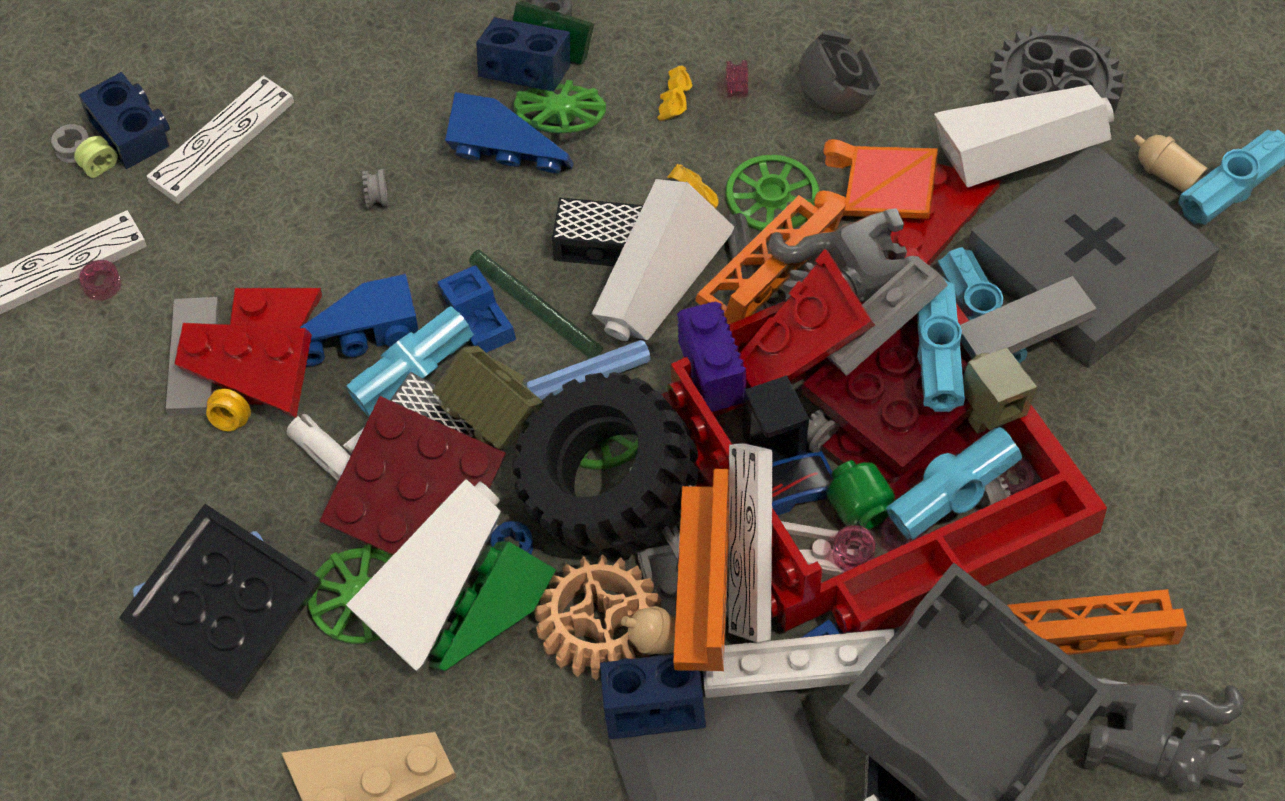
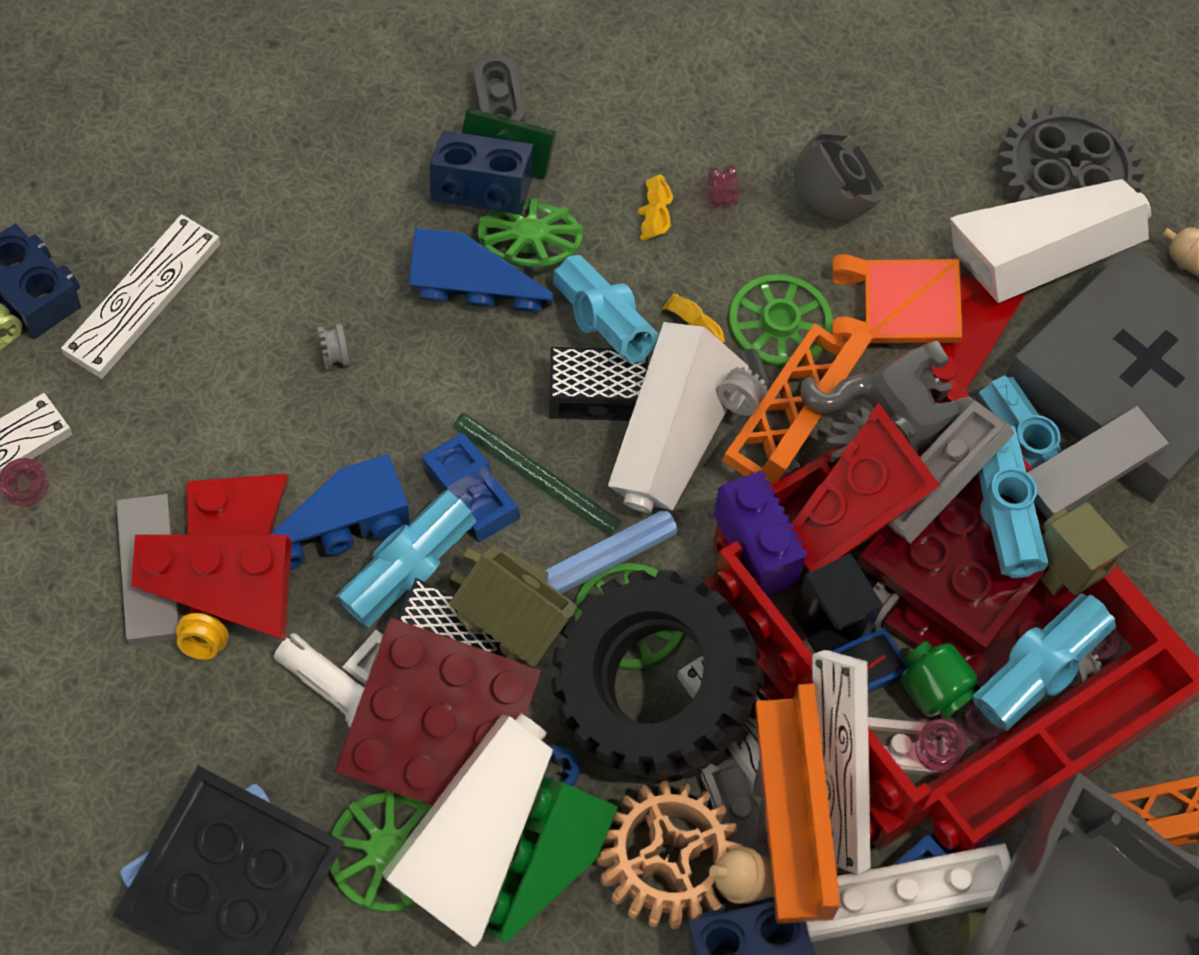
camera: 15 degrees left, 5 degrees up
(611, 169) = (605, 309): none -> medium azure piece
(729, 243) = (742, 382): none -> light grey bush

